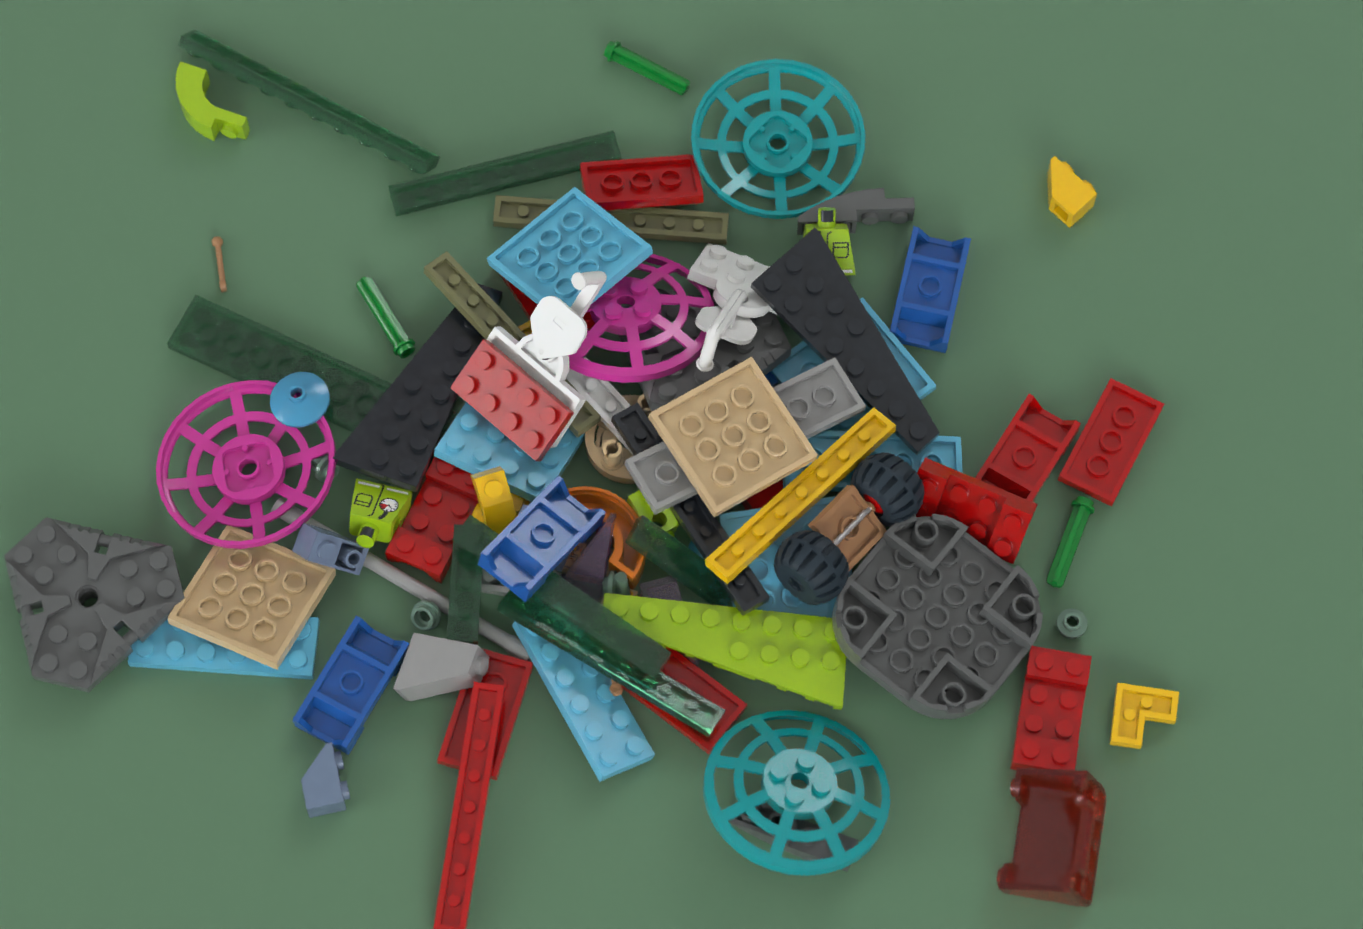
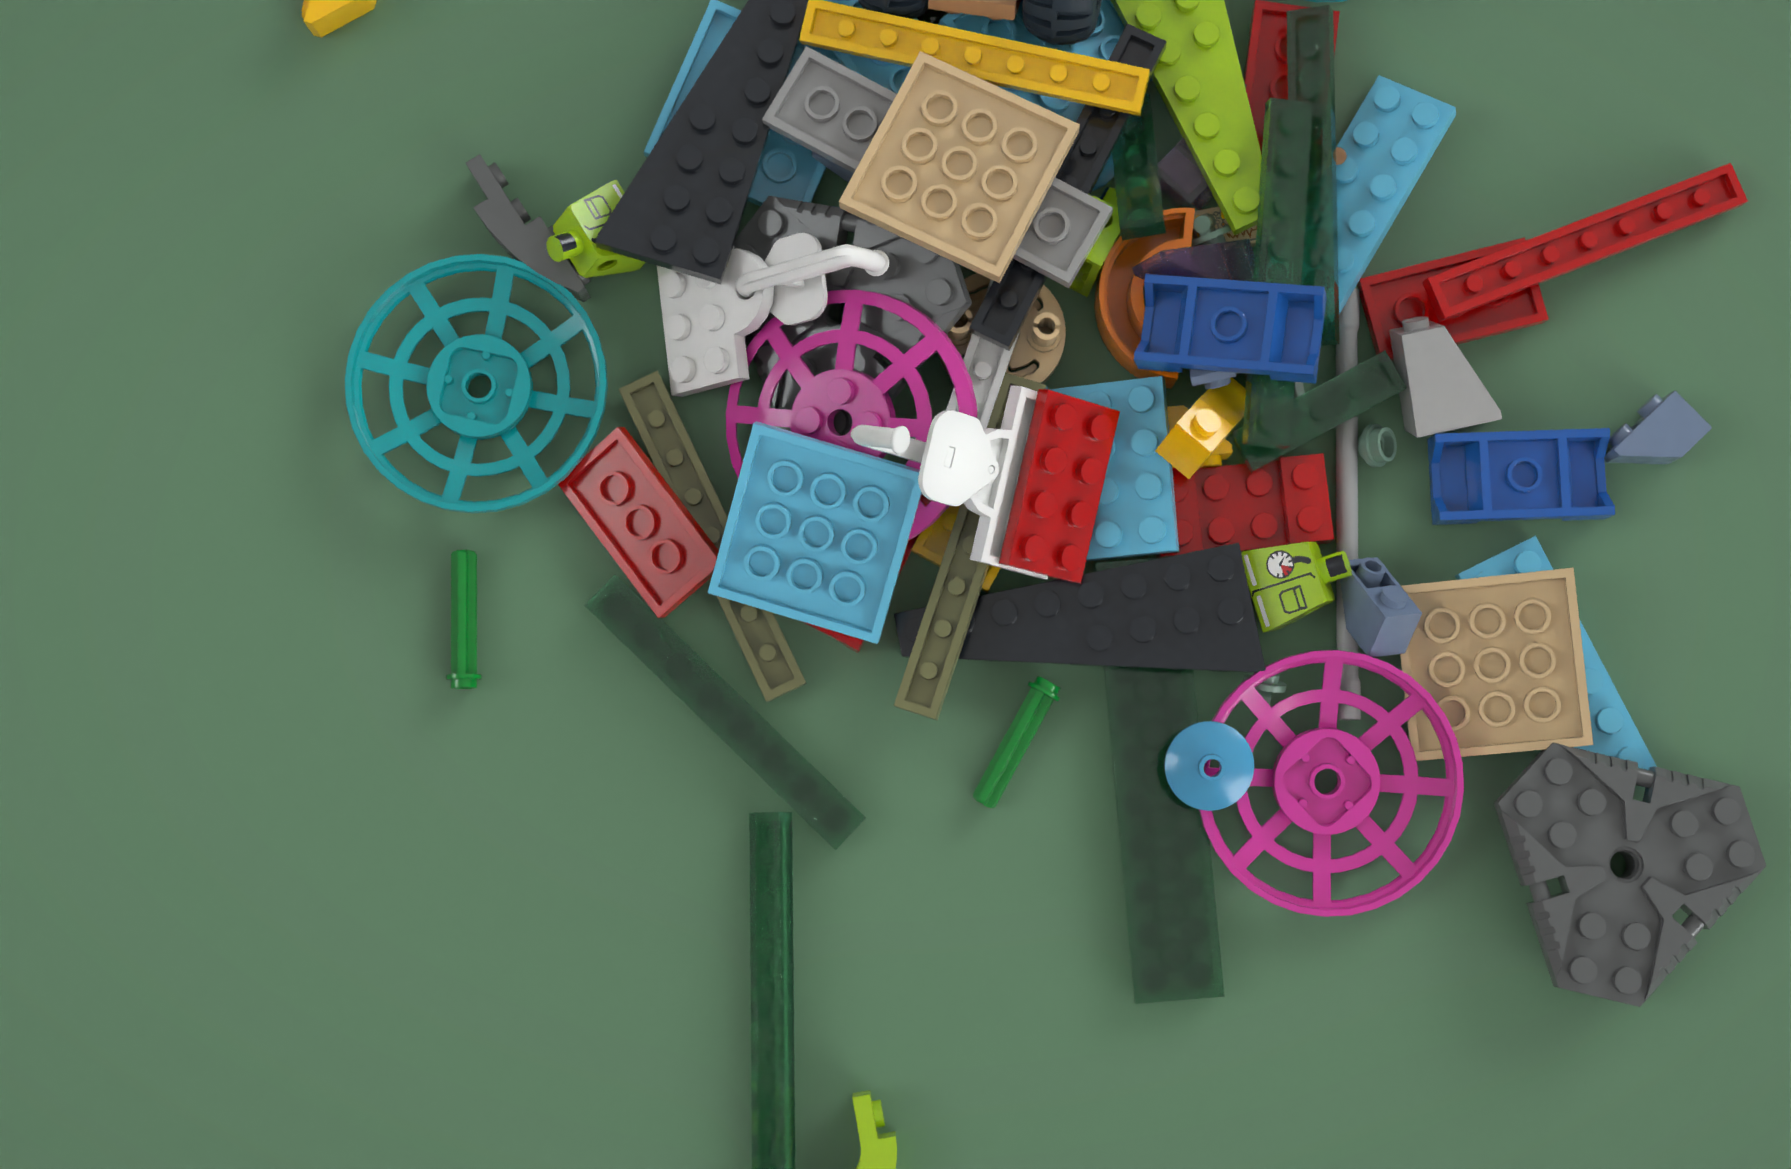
camera: 120 degrees left, 15 degrees up
(217, 242) = (1039, 1028): medium nougat hinge -> none
(929, 291) = (578, 81): blue piece -> none

